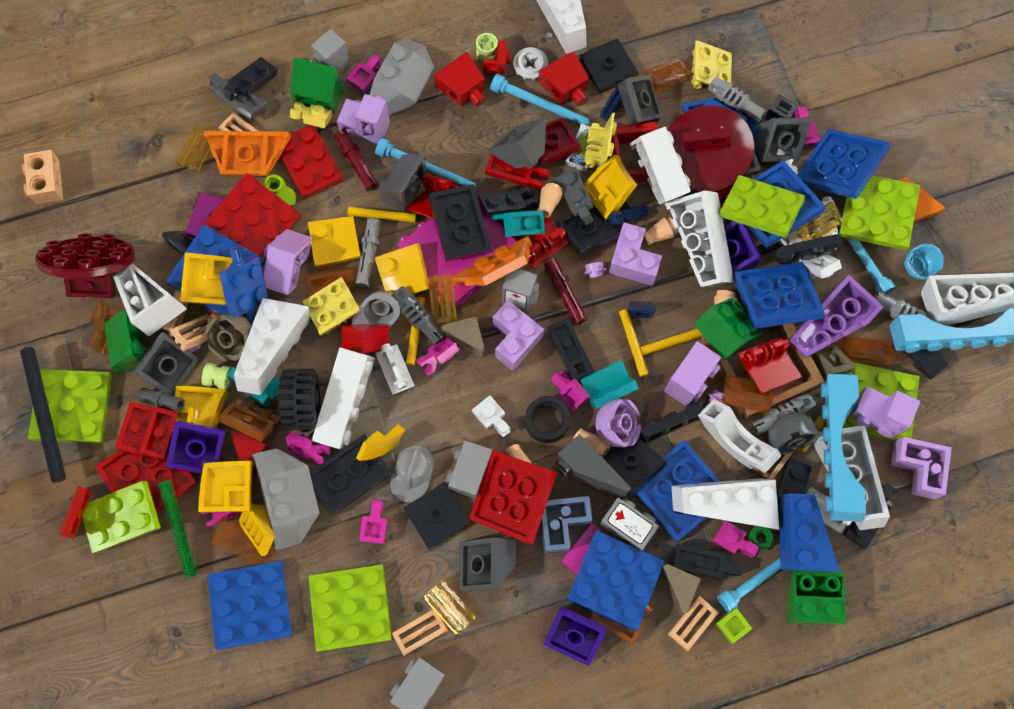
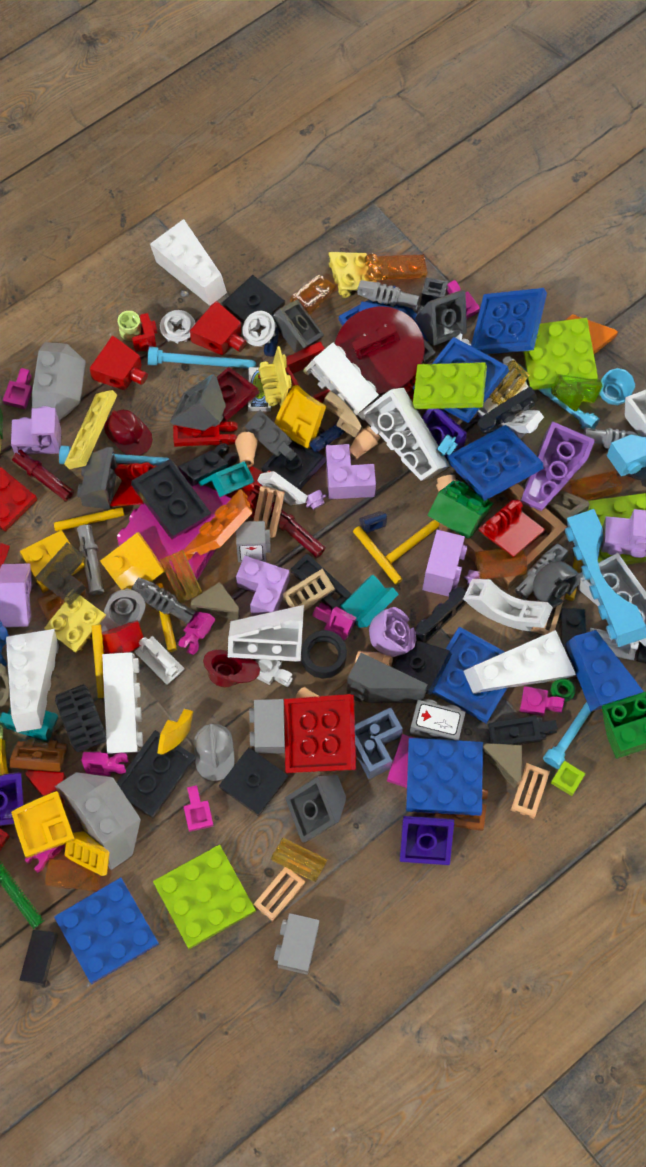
camera: 20 degrees left, 5 degrees down
(180, 607) = (39, 957): none -> black slope
(331, 257) = (58, 574): none -> clear smoke plate
(340, 342) = (98, 651): none -> yellow bar
(413, 132) = (90, 429): none -> light yellow tile
(448, 147) = (128, 432): none -> dark red piece
(453, 401) = (229, 671): none -> dark red piece
(501, 384) = (268, 636): none -> white wedge
(536, 359) = (288, 595): none -> tan slope
(541, 265) = (268, 508): none -> light nougat tile
(567, 248) = (292, 495): none -> white tile
(600, 83) = (253, 322): none -> white gear
(653, 204) = (347, 419): none -> tan slope
(738, 262) = (447, 445): none -> medium azure plate
(754, 75) = (395, 267): none -> clear orange plate
(881, 251) = (574, 390): none -> clear neon green slope

